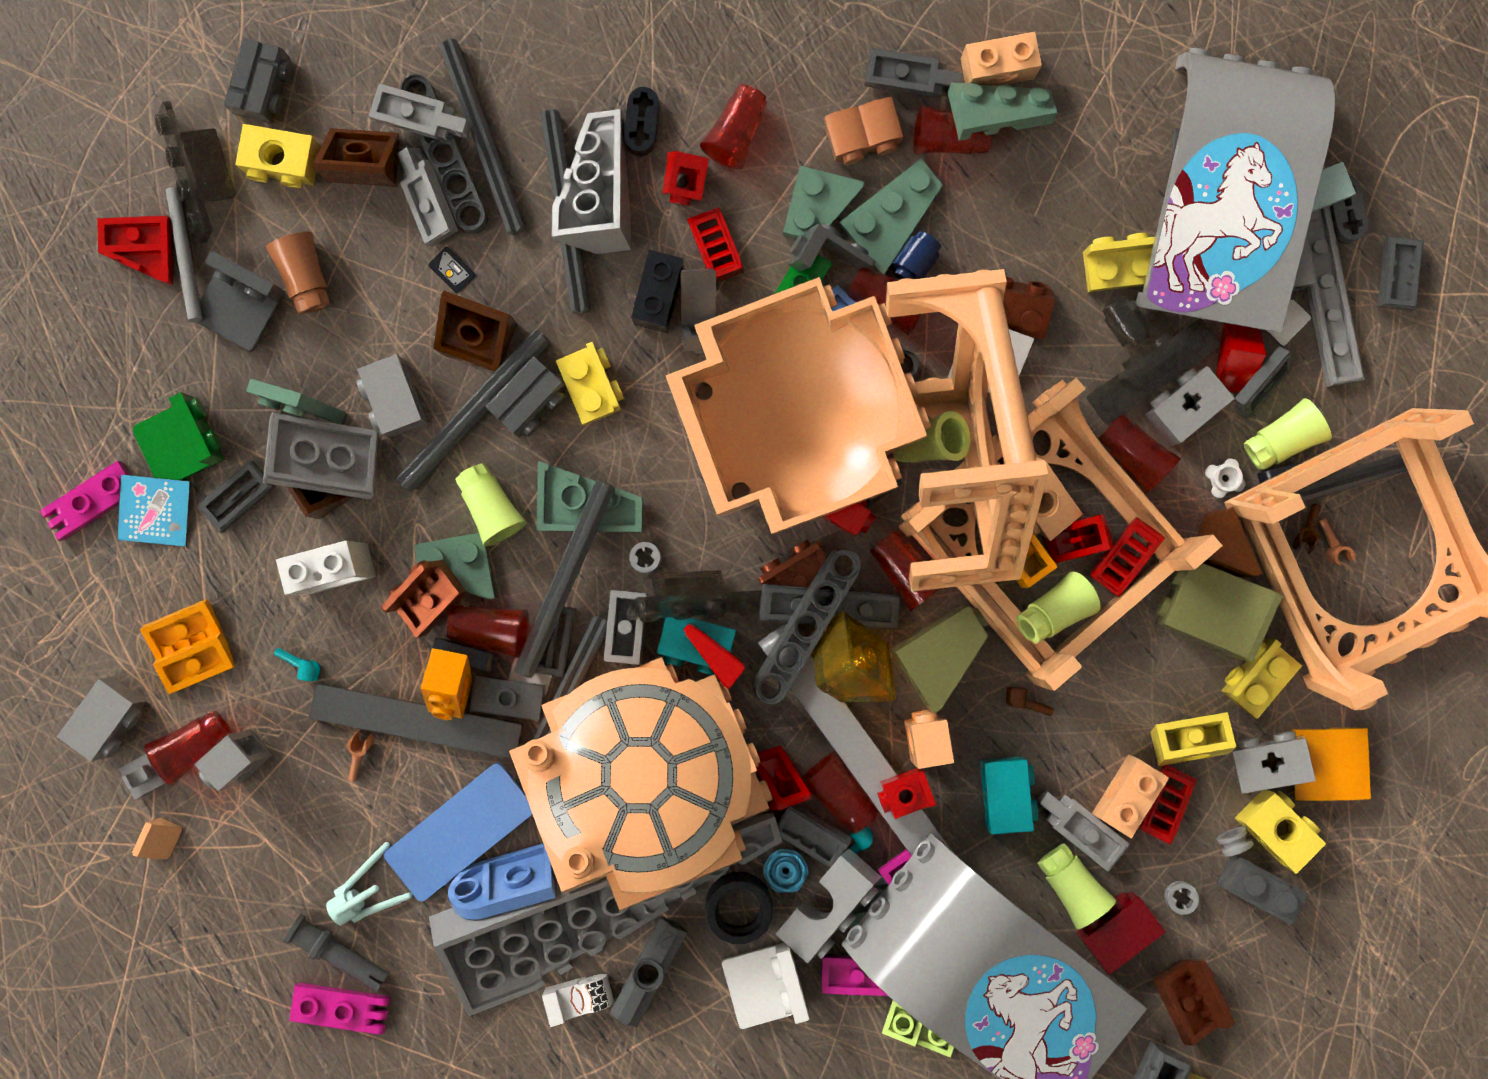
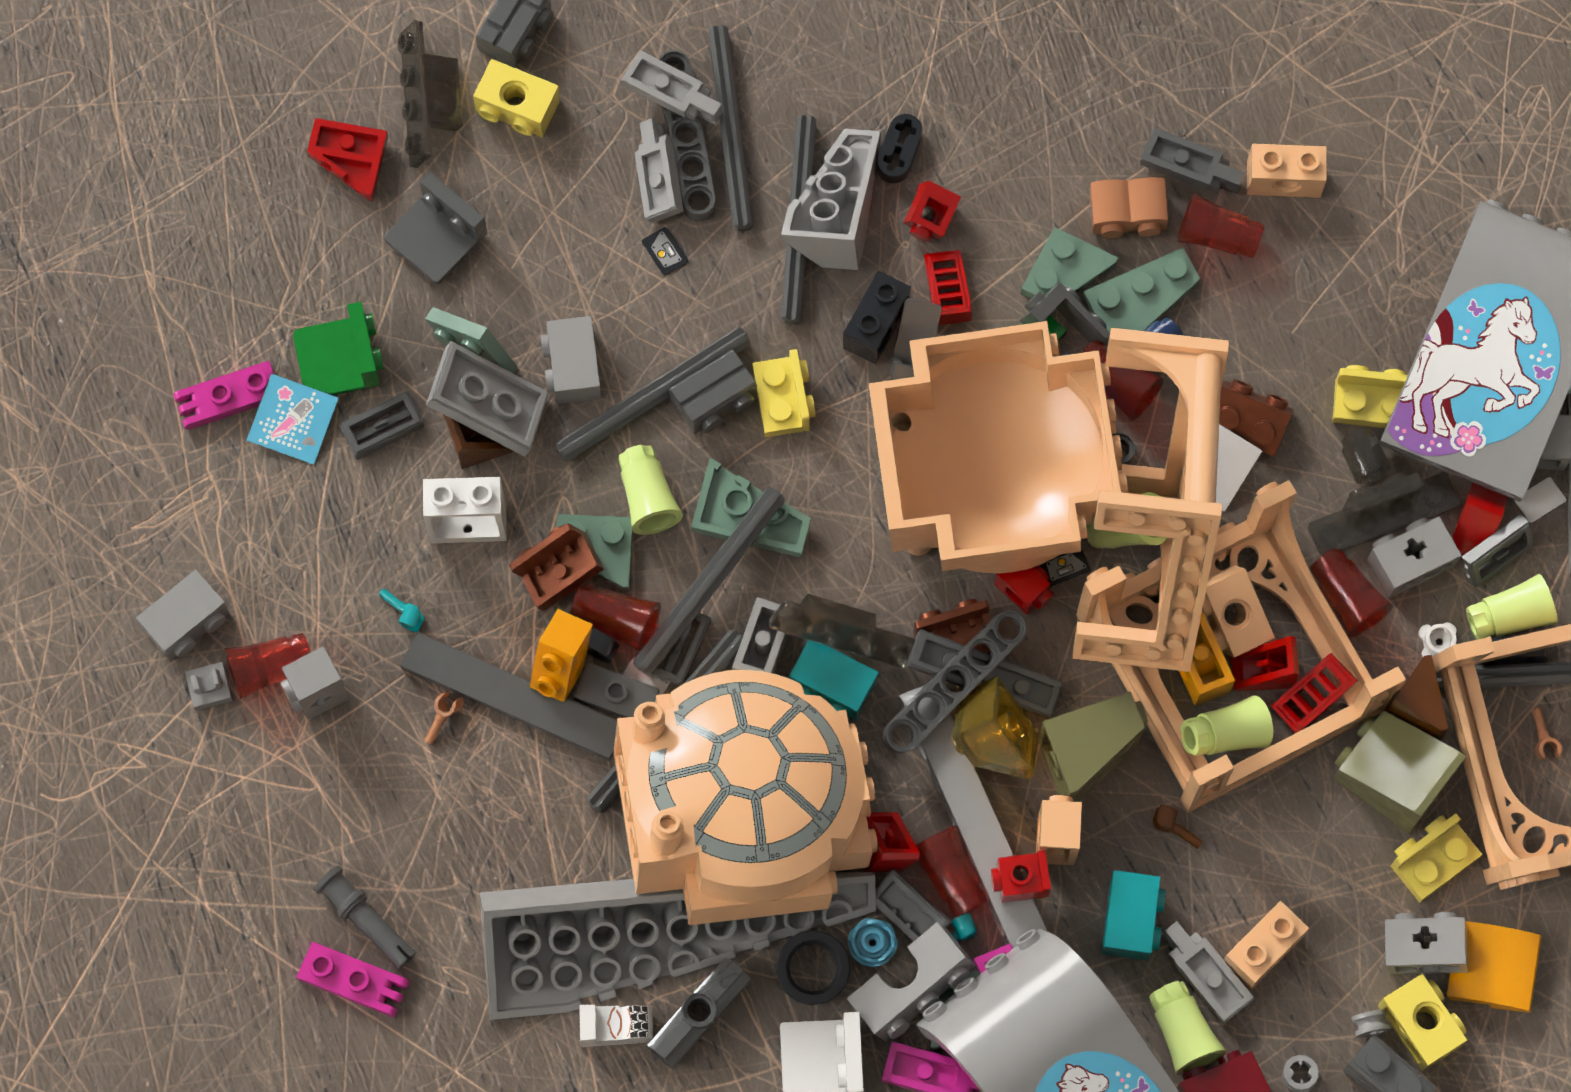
camera: 10 degrees right, 15 degrees down
(157, 839) = (206, 754): light nougat slope -> none
(184, 256) = (393, 174): light grey bar -> none
(188, 646) = (291, 564): light orange slope -> none
(300, 271) = (510, 214): nougat plant -> none
(348, 904) = (391, 865): light aqua plant -> none
(359, 157) = (598, 120): reddish brown slope -> none
(459, 832) = (530, 820): medium blue piece -> none
(473, 331) = (674, 313): reddish brown slope -> none
(503, 883) = (568, 877): medium blue tile -> none
(656, 555) = (798, 571): light grey bush -> none
(720, 660) = (855, 691): red slope -> none
(735, 127) = (995, 175): clear red plant -> none
(895, 561) = (1080, 677): clear red plant -> none
(994, 107) = (1265, 211): sand green wing -> none
(1178, 808) = (1287, 993): red slope -> none
(1193, 739) = (1345, 899): light yellow brick -> none
(1309, 533) = (1517, 718): reddish brown hand -> none

